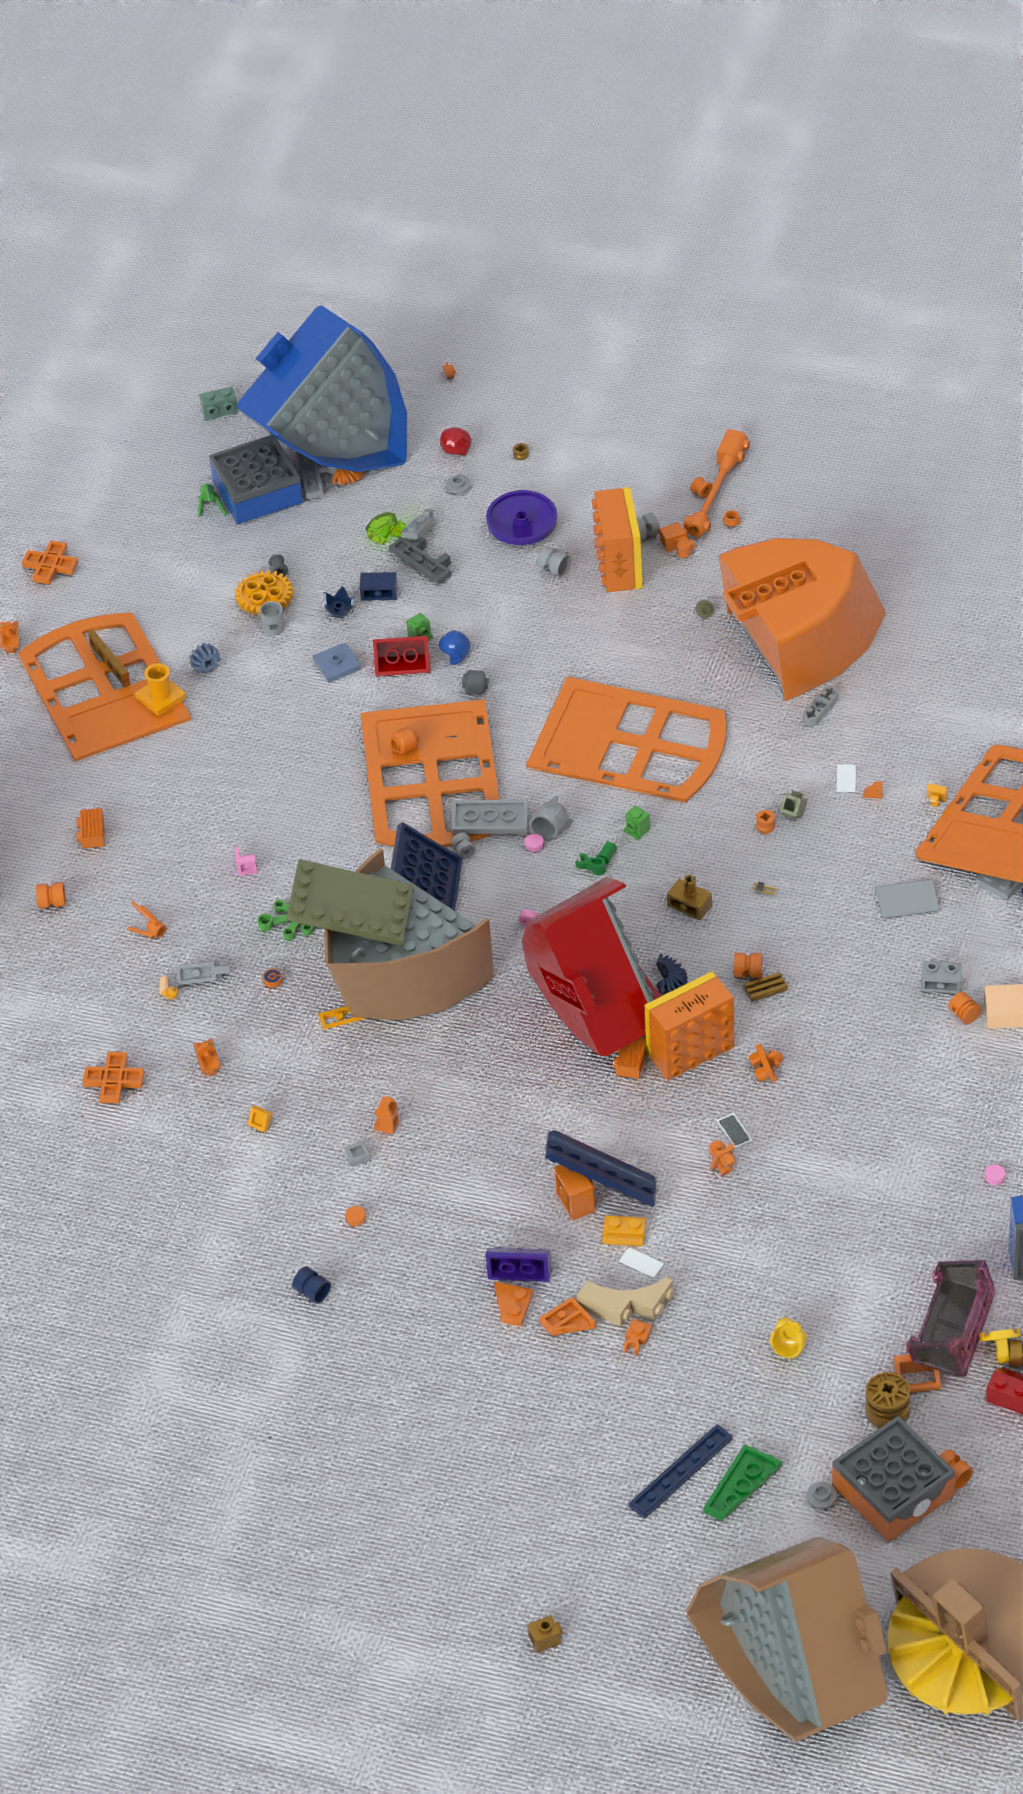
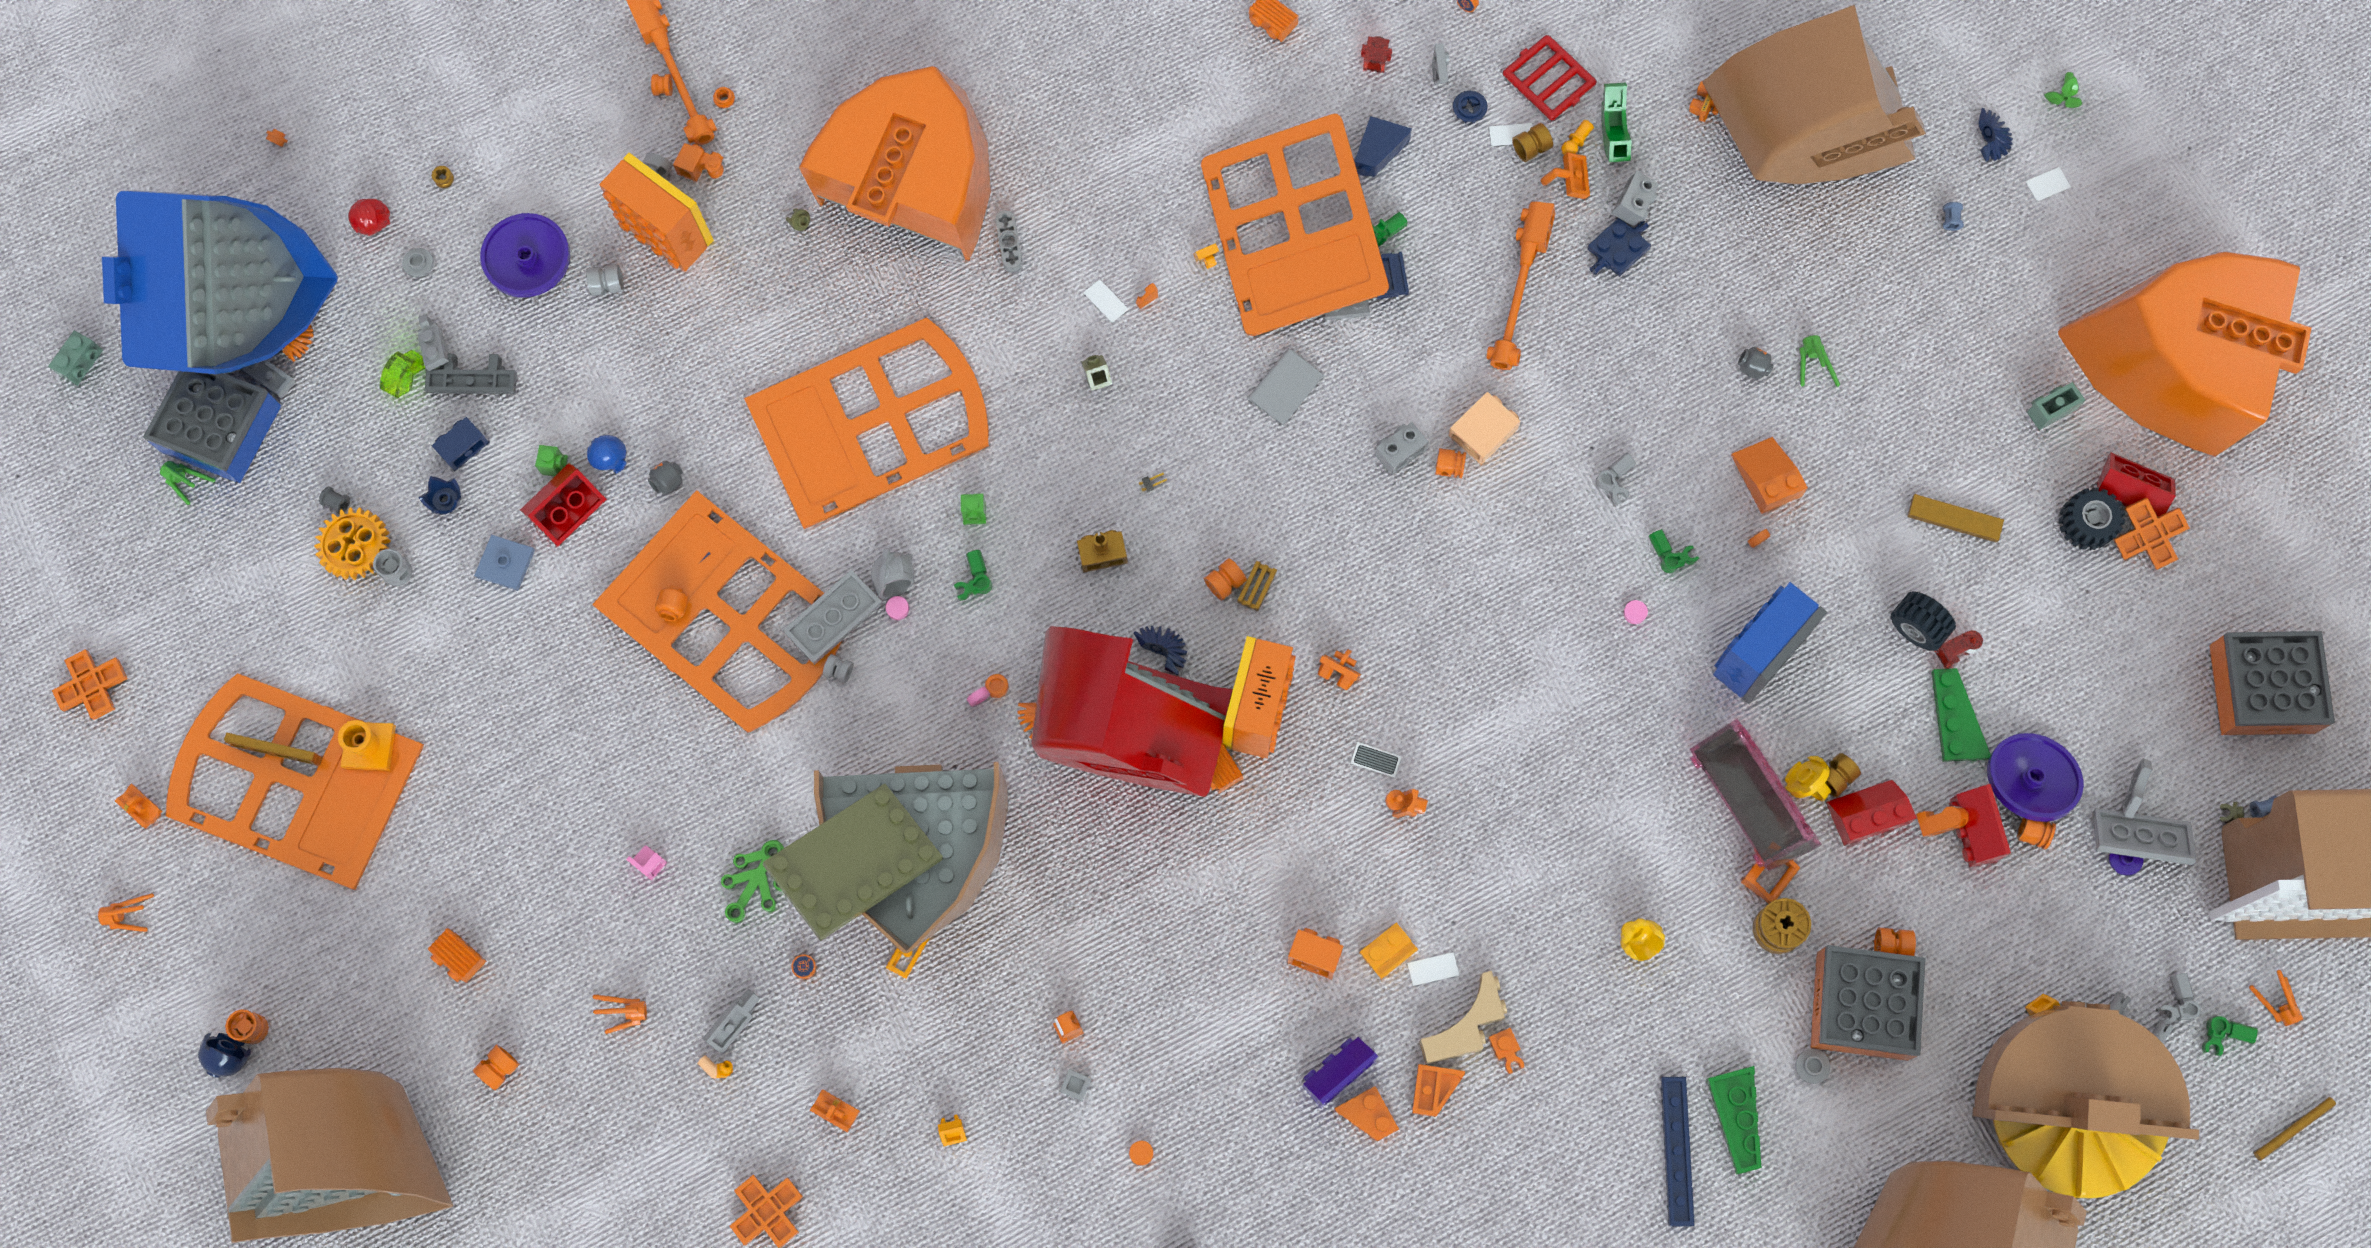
camera: 45 degrees left, 25 degrees up
(204, 658) = (372, 669): sand blue gear -> none
(427, 864) = (841, 731): dark blue plate -> none
(601, 1167) = (1326, 918): dark blue plate -> none
(765, 821) = (1082, 414): orange wheel -> none

